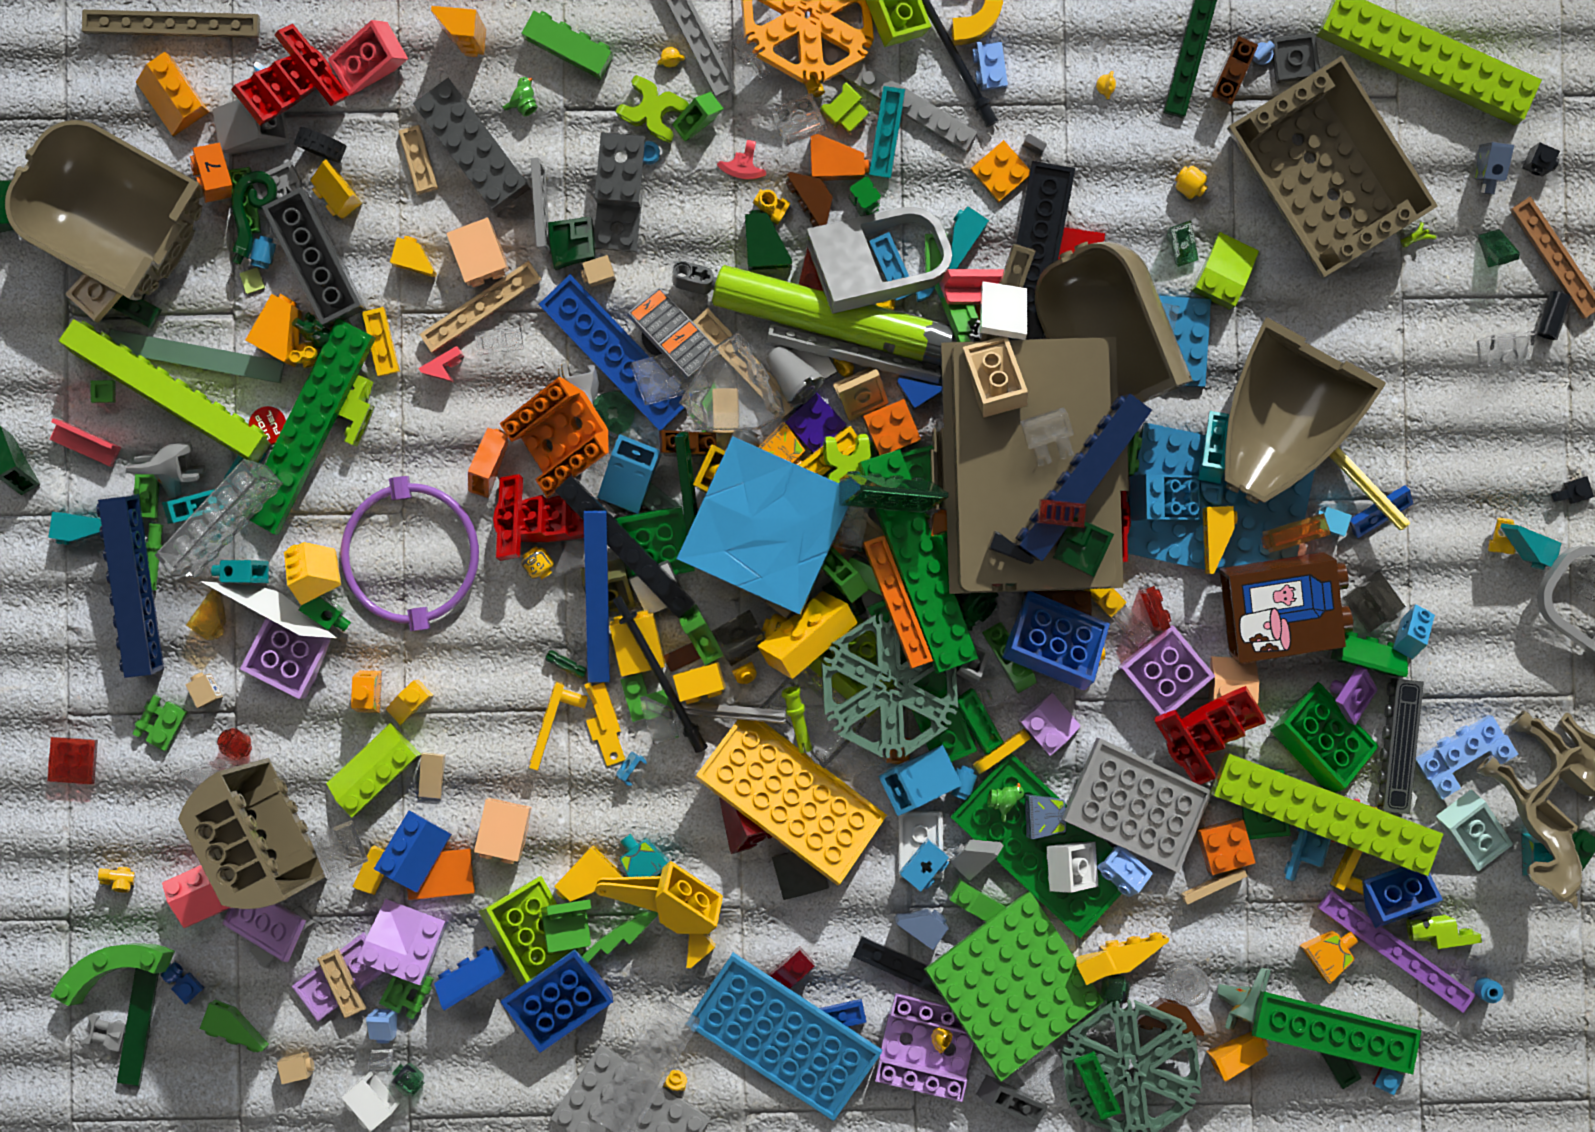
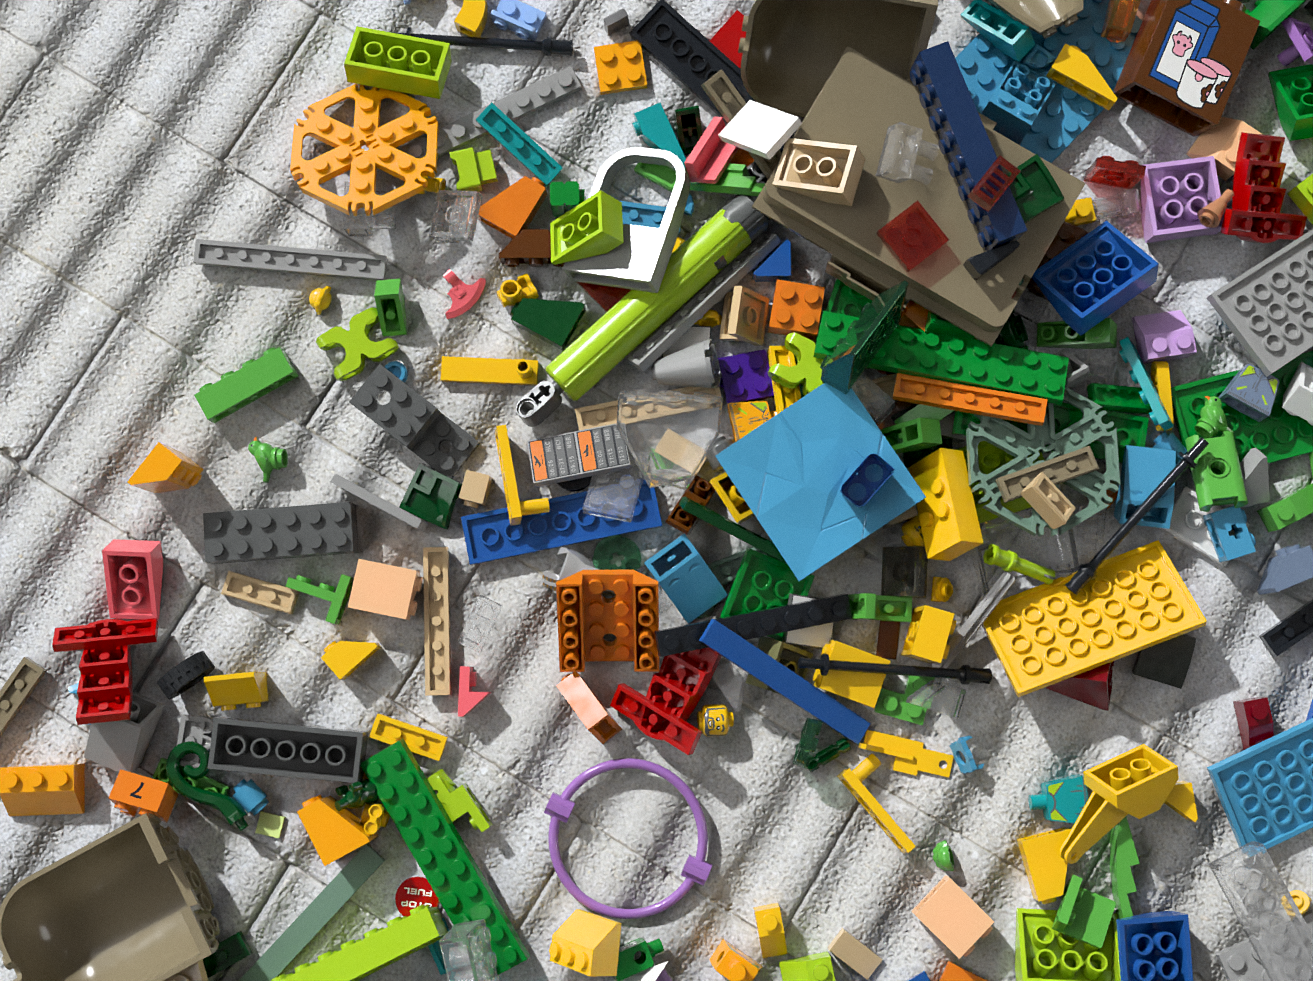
camera: 50 degrees left, 5 degrees down
(448, 208) = (338, 598): none -> bright green bracket
(545, 797) = (943, 856): none -> bright green piece
(563, 642) = (807, 743): none -> clear green plate
(601, 311) = (515, 508): none -> yellow piece
(696, 223) = (489, 370): none -> yellow piece
(764, 549) = (861, 478): none -> blue piece
(826, 774) = (1088, 570): none -> black bar
(848, 228) = (587, 229): none -> lime slope
(855, 708) = (1048, 501): none -> tan slope
(876, 695) = (1057, 470): none -> dark tan tile
(948, 830) = (1213, 488): none -> bright green piece
(983, 255) = (688, 127): none -> dark green slope
(989, 479) = (912, 236): none -> clear red plate
(1005, 725) = (1148, 394): none -> teal plate
(1165, 701) = (1212, 213): none -> nougat cone

